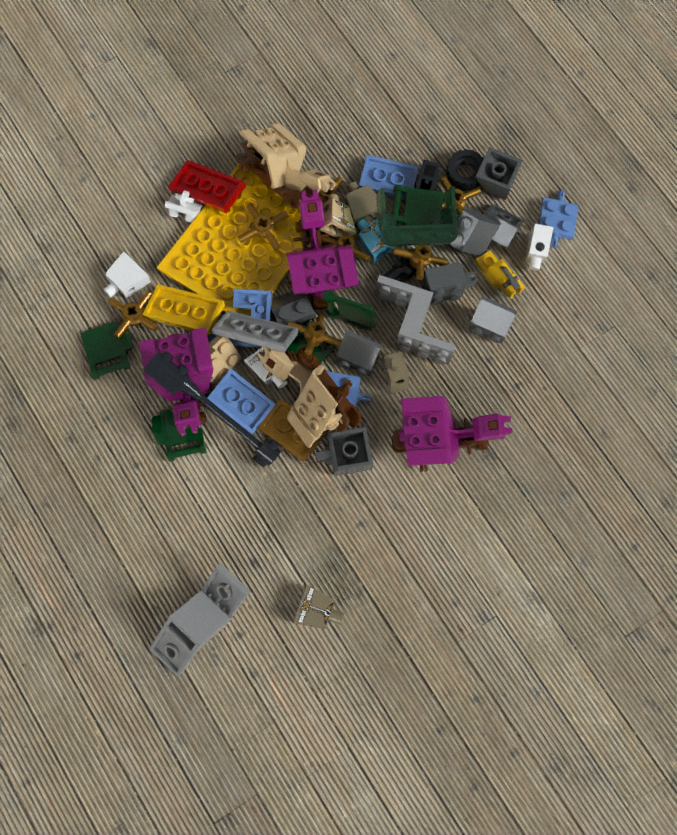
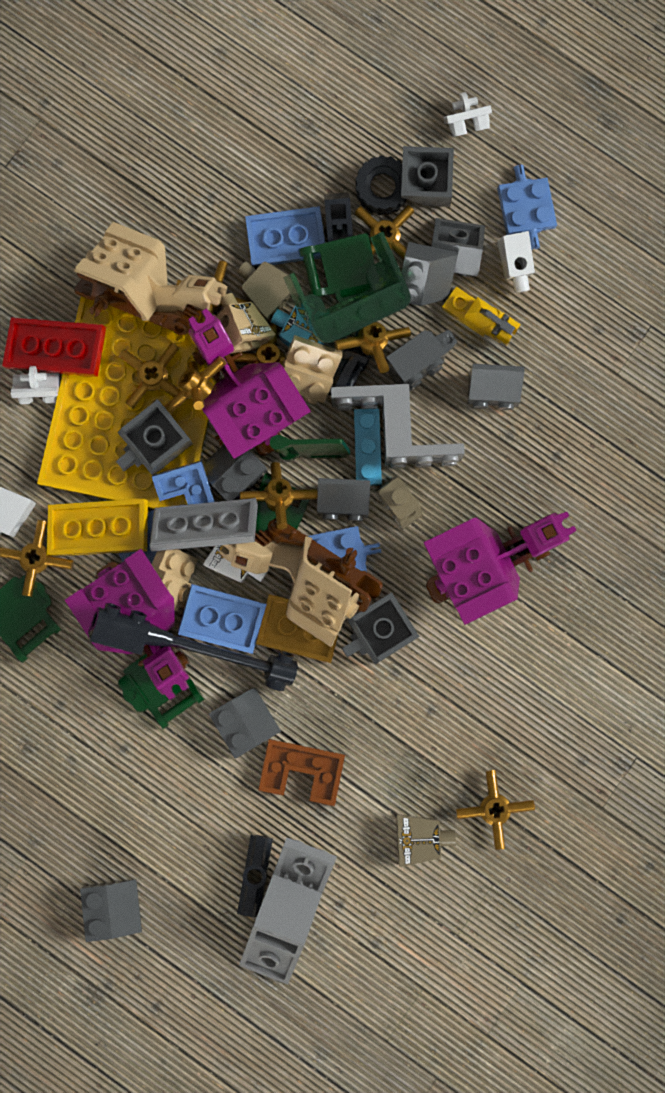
camera: 15 degrees left, 10 degrees up
(76, 571) = (110, 910): none -> dark grey slope
(196, 576) = (252, 892): none -> black piece
(226, 478) = (244, 722): none -> dark grey slope
(245, 265) = (152, 439): none -> dark grey hinge
(245, 513) = (285, 756): none -> dark orange plate
(288, 239) = (195, 385): none -> pearl gold bar
(371, 261) = (311, 368): none -> tan plate
(388, 613) = (487, 803): none -> pearl gold bar
(389, 327) = (368, 445): none -> medium azure plate
(531, 148) = (479, 115): none -> white hips

